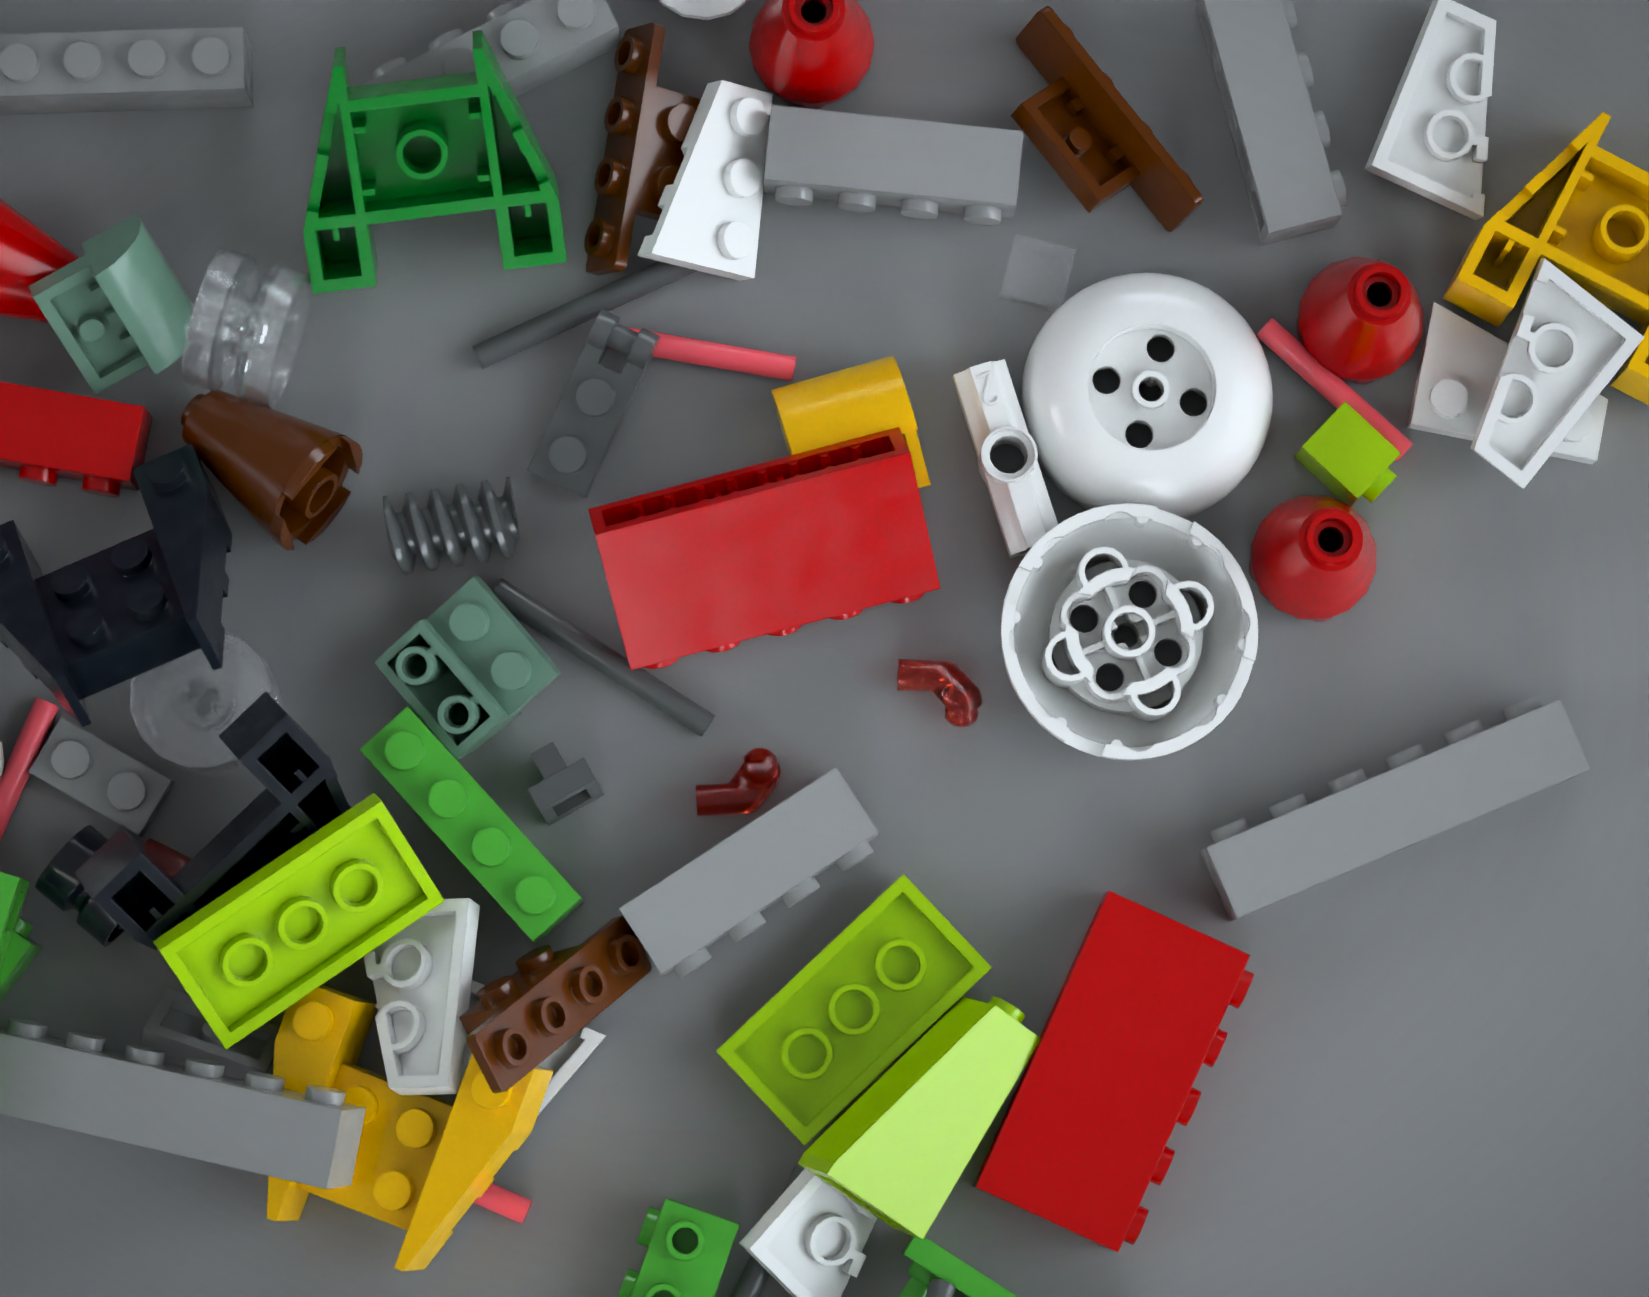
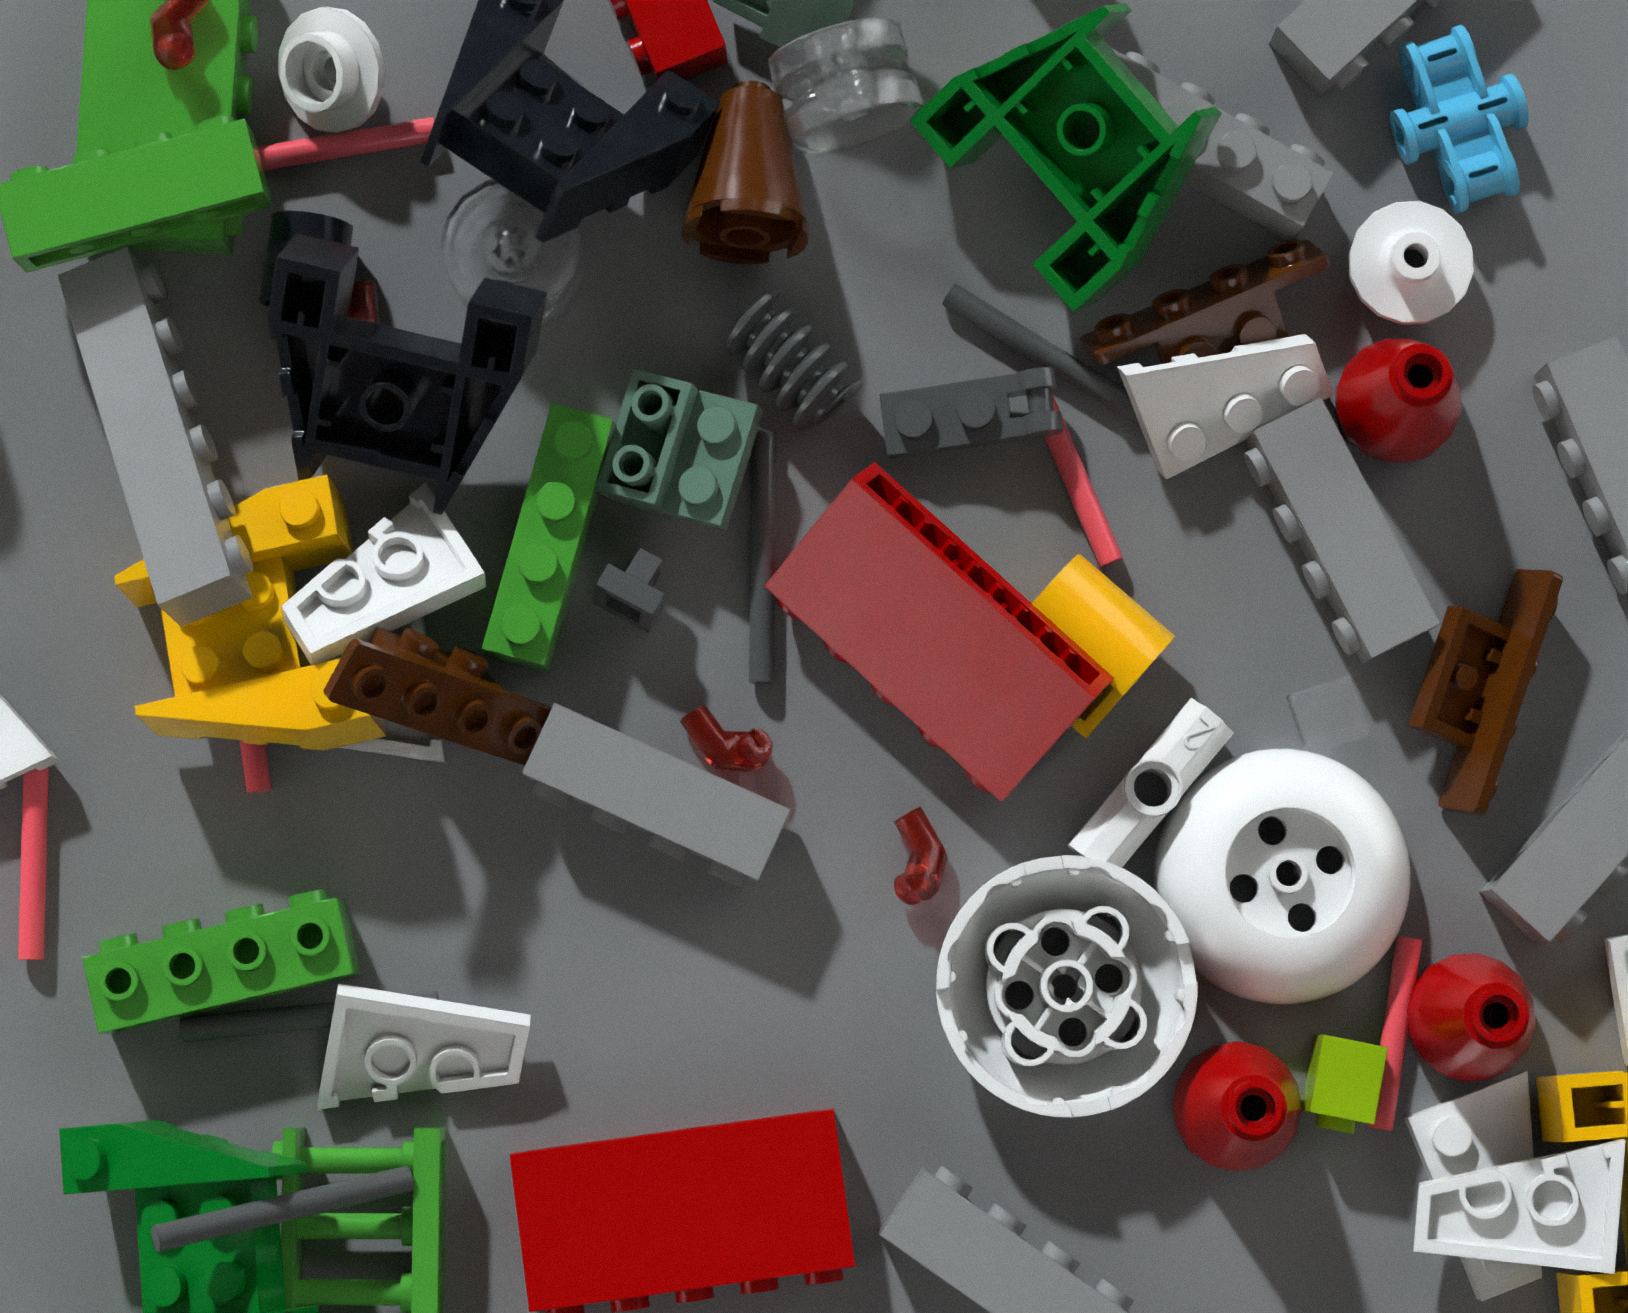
camera: 65 degrees right, 0 degrees up
(101, 777) = (400, 213): light grey plate -> none
(184, 1033) = (242, 432): light grey plate -> none
(299, 921) = (371, 441): lime plate -> none
(853, 1009) = (598, 956): lime plate -> none
(925, 1116) = (544, 1073): lime slope -> none

